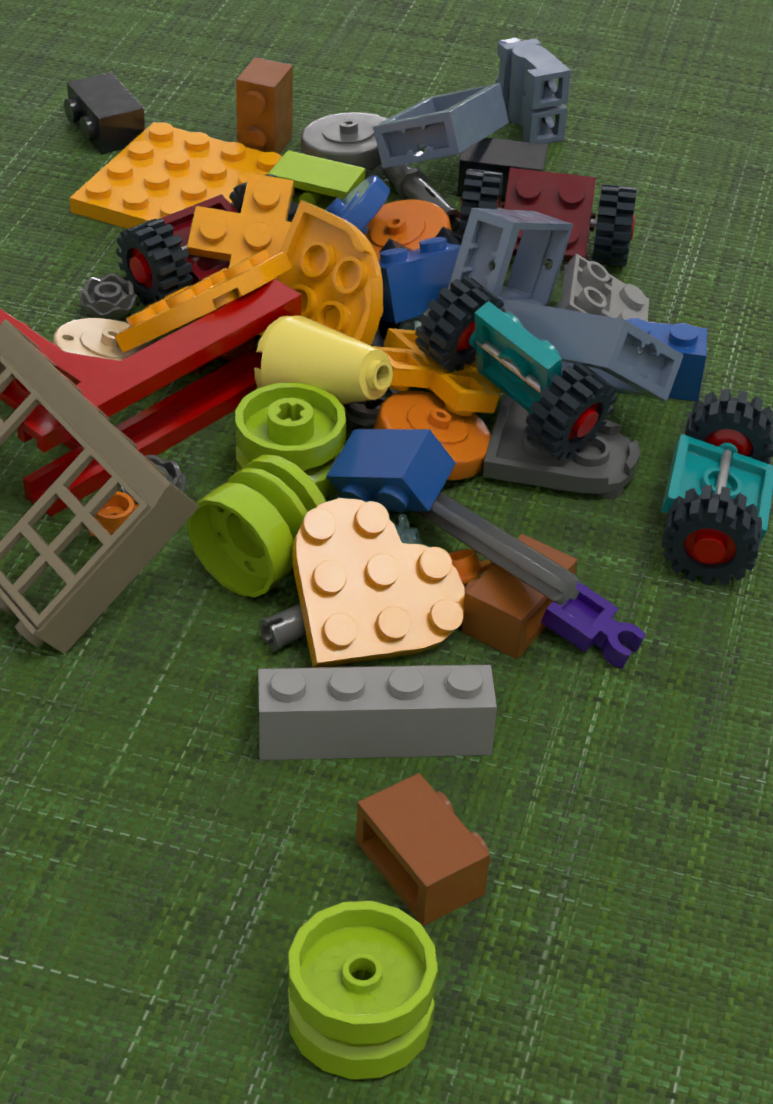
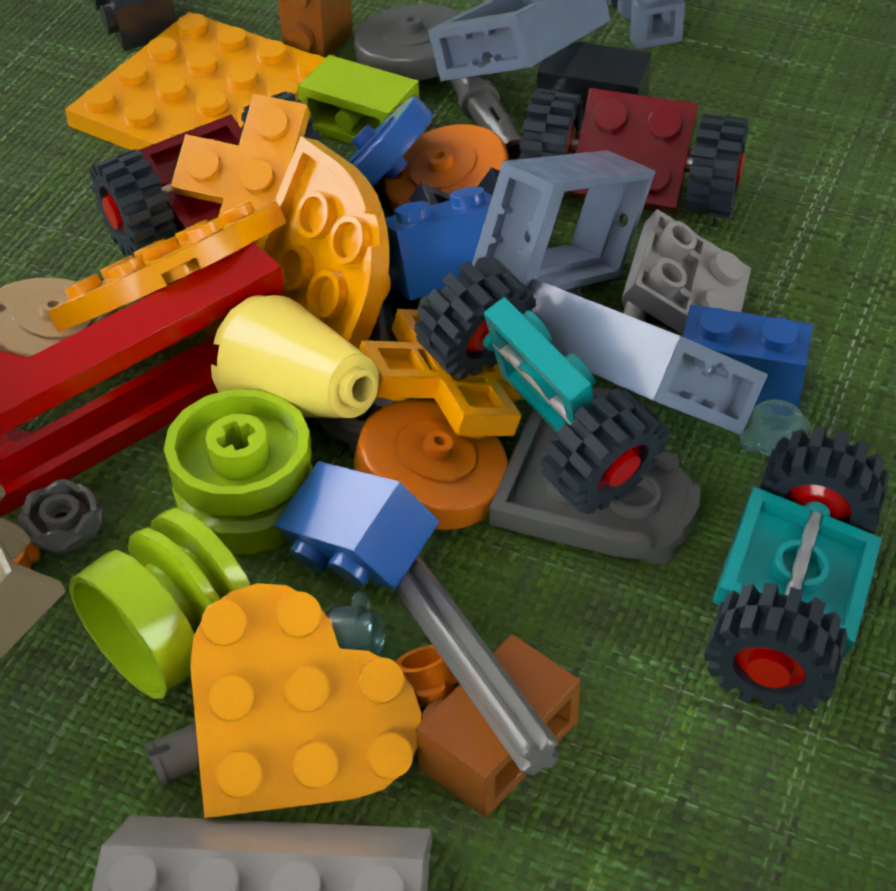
camera: 10 degrees right, 5 degrees up
(108, 297) = (75, 246): dark grey plate -> none
(590, 622) = (591, 772): dark purple plate -> none
(680, 403) = (770, 423): none -> clear light blue plate

